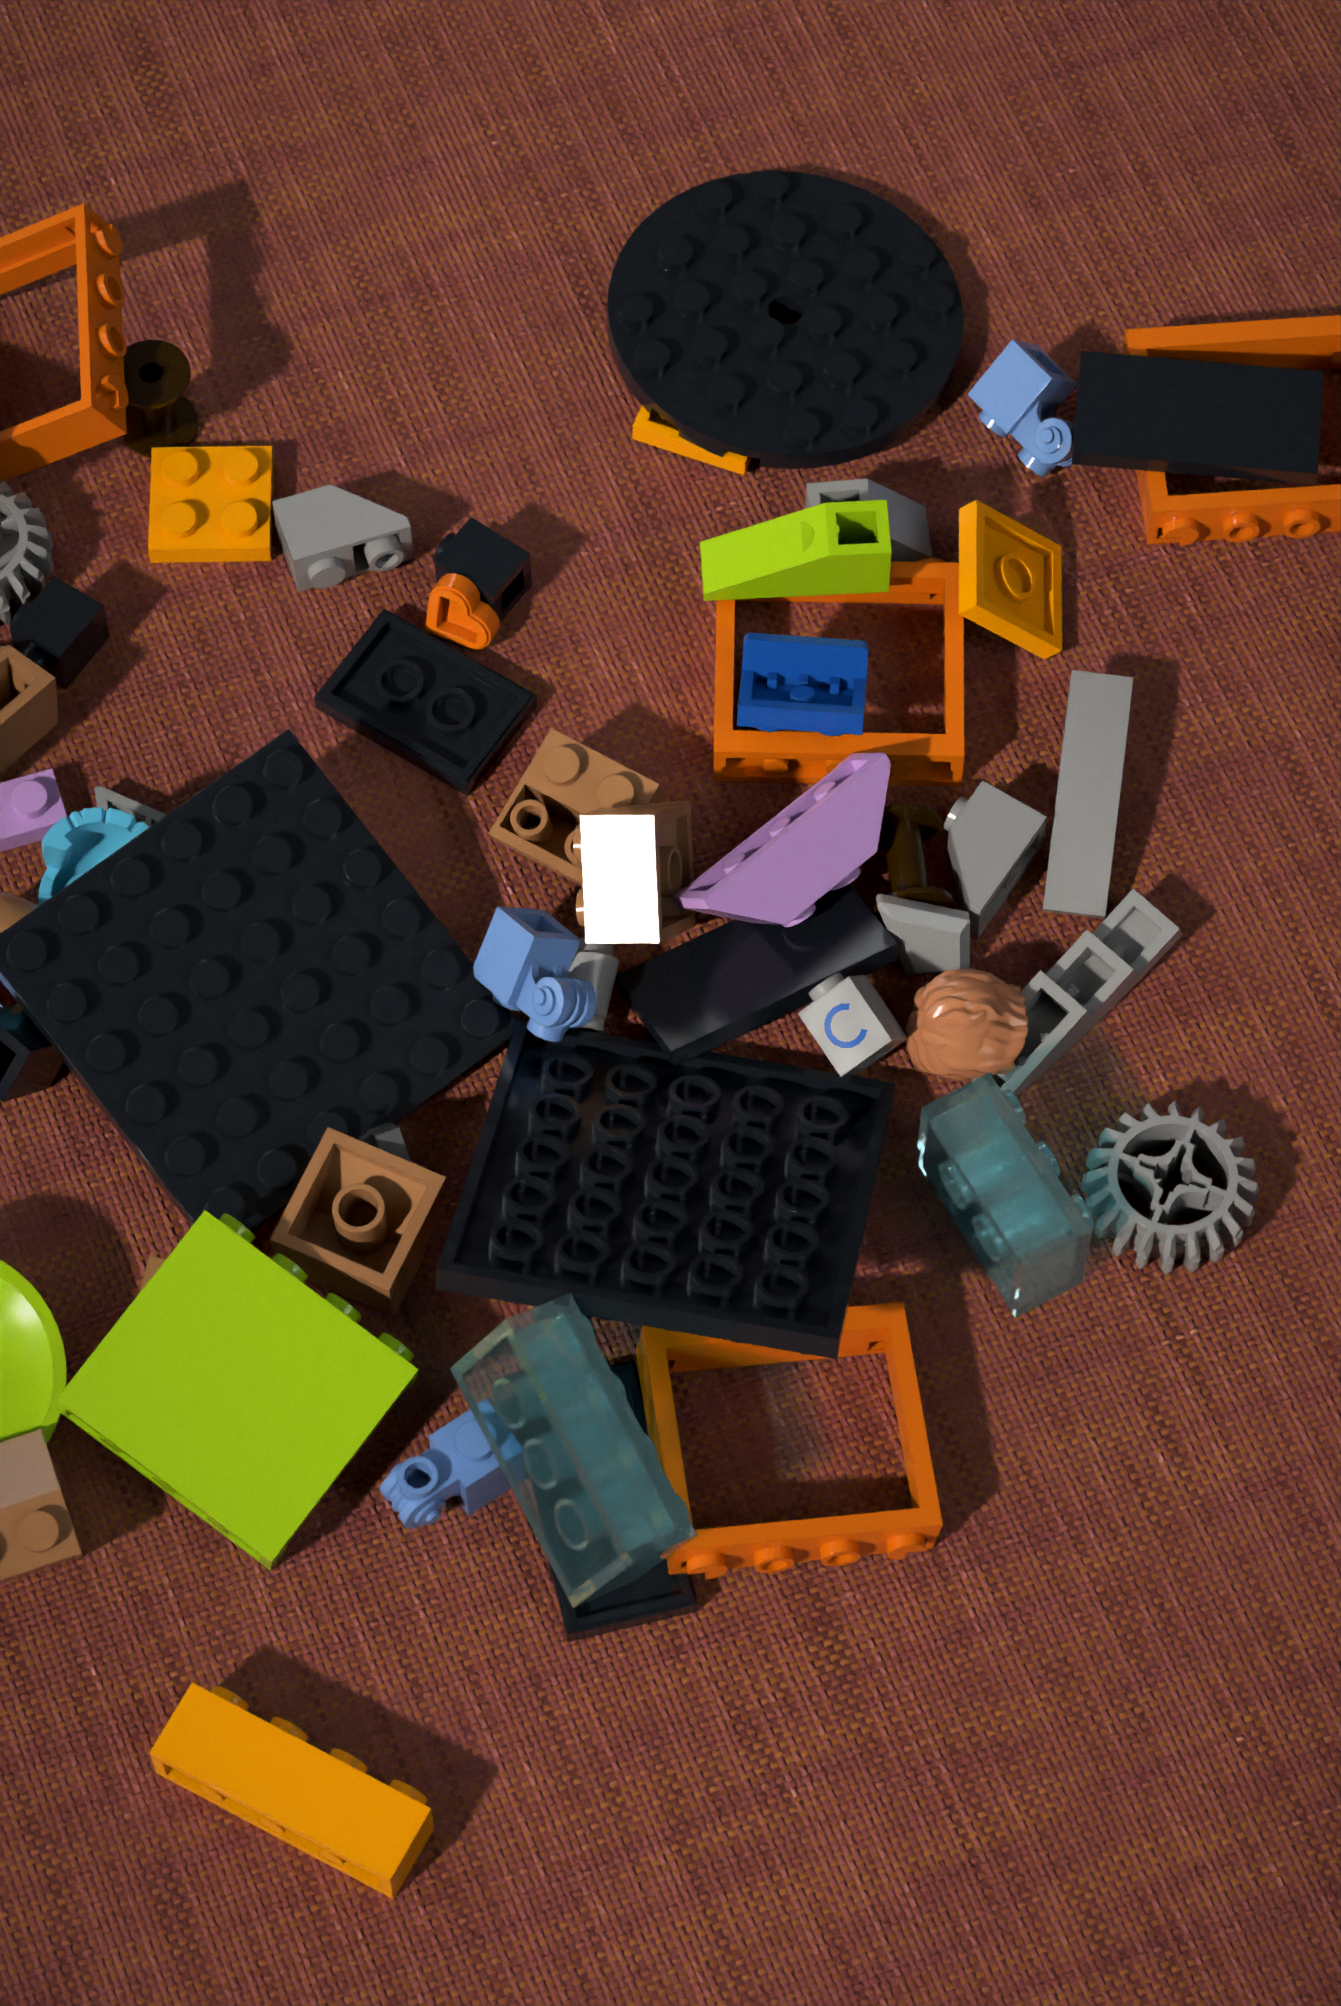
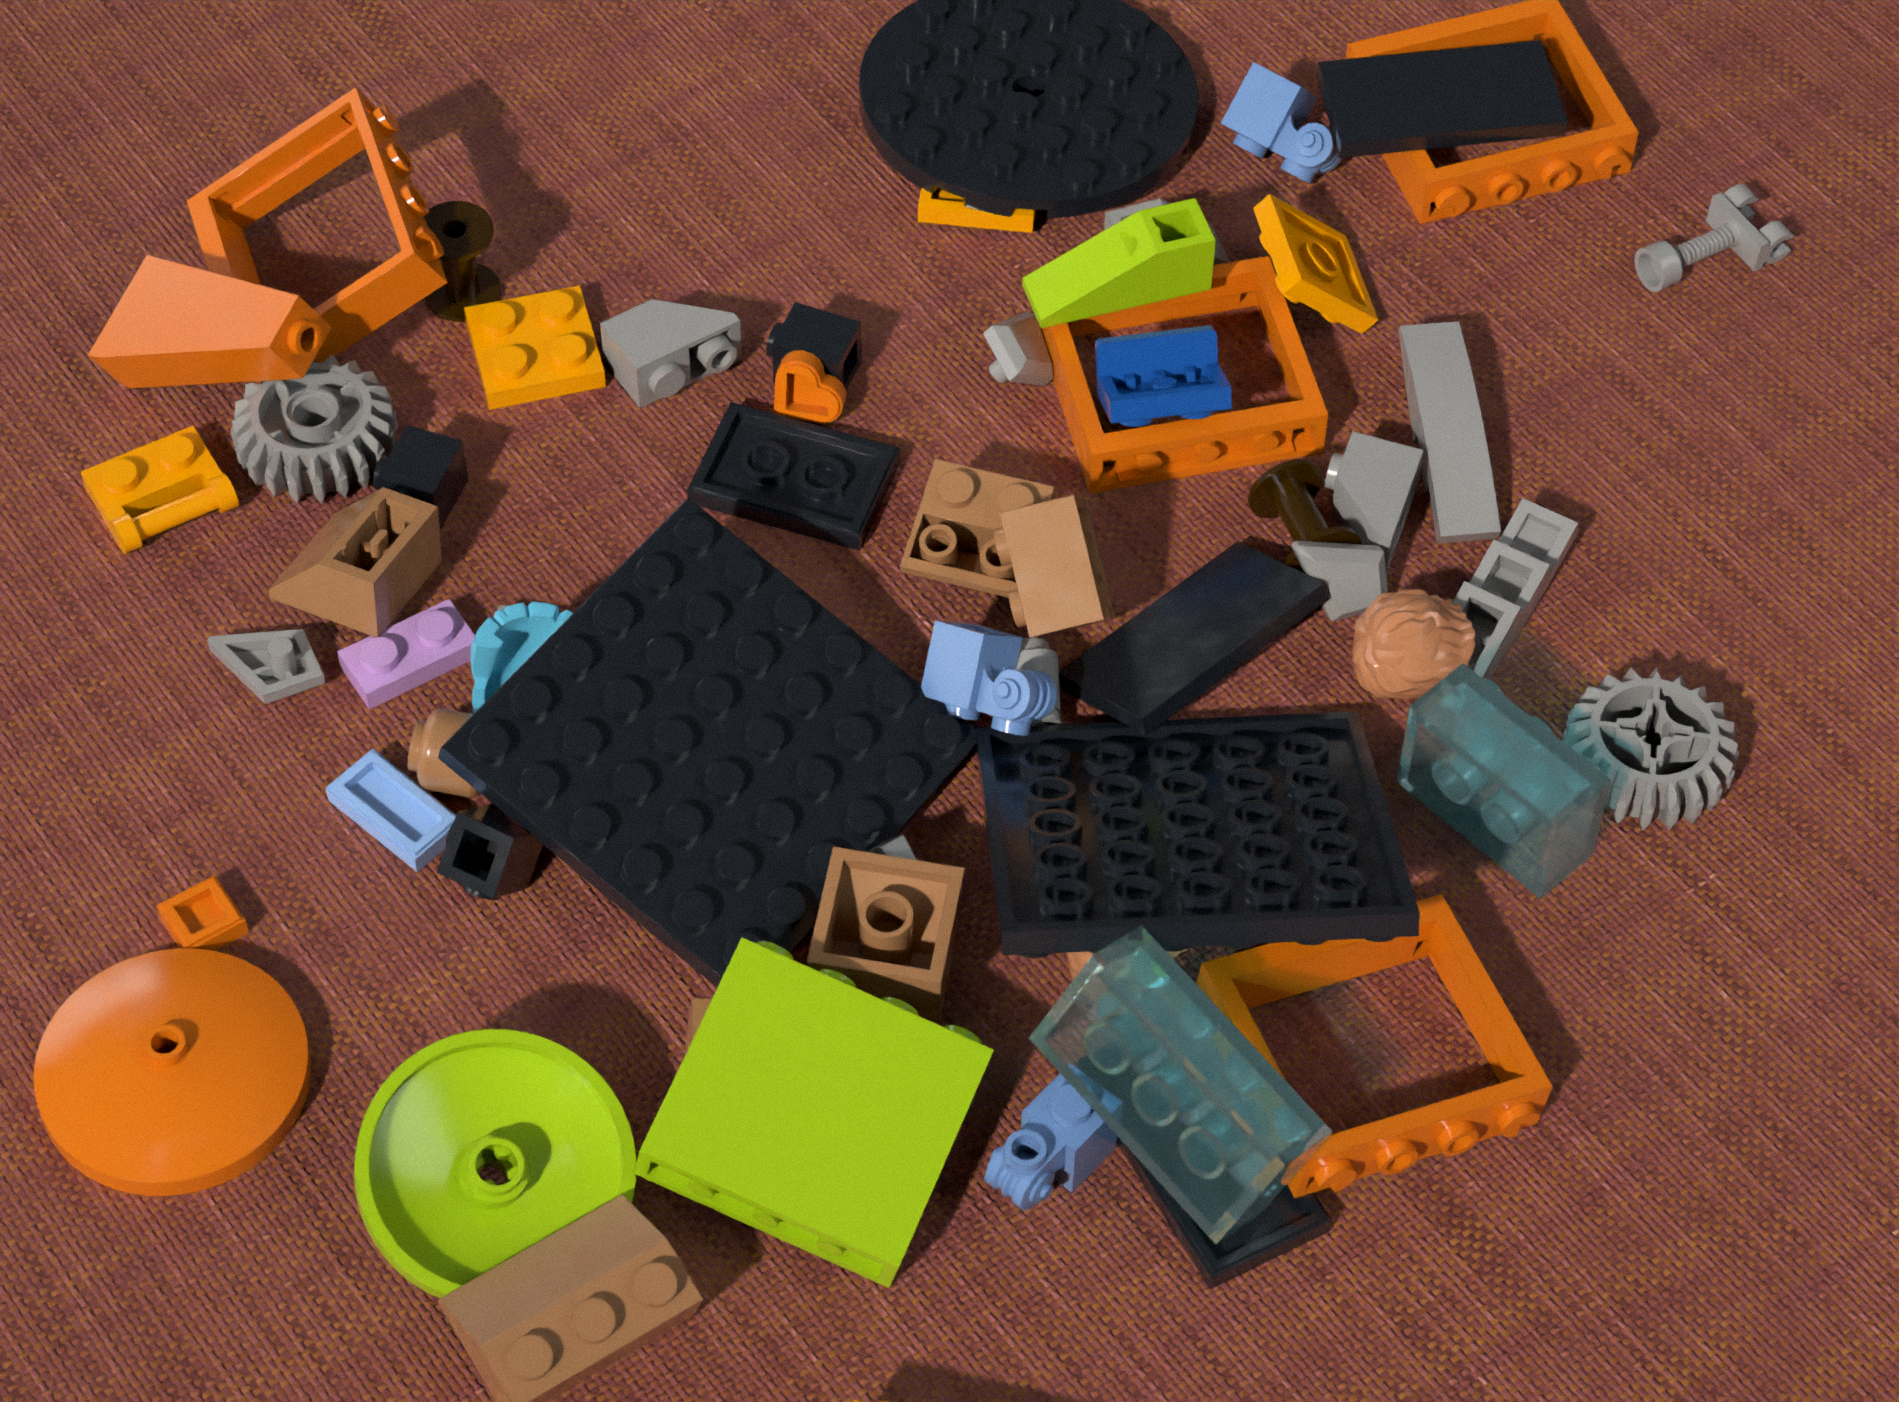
camera: 15 degrees left, 10 degrees down
(682, 614) = (1019, 351): none -> light grey piece
(799, 851) = (1205, 520): lavender wedge -> none
(851, 1023) = (1304, 659): light grey brick -> none

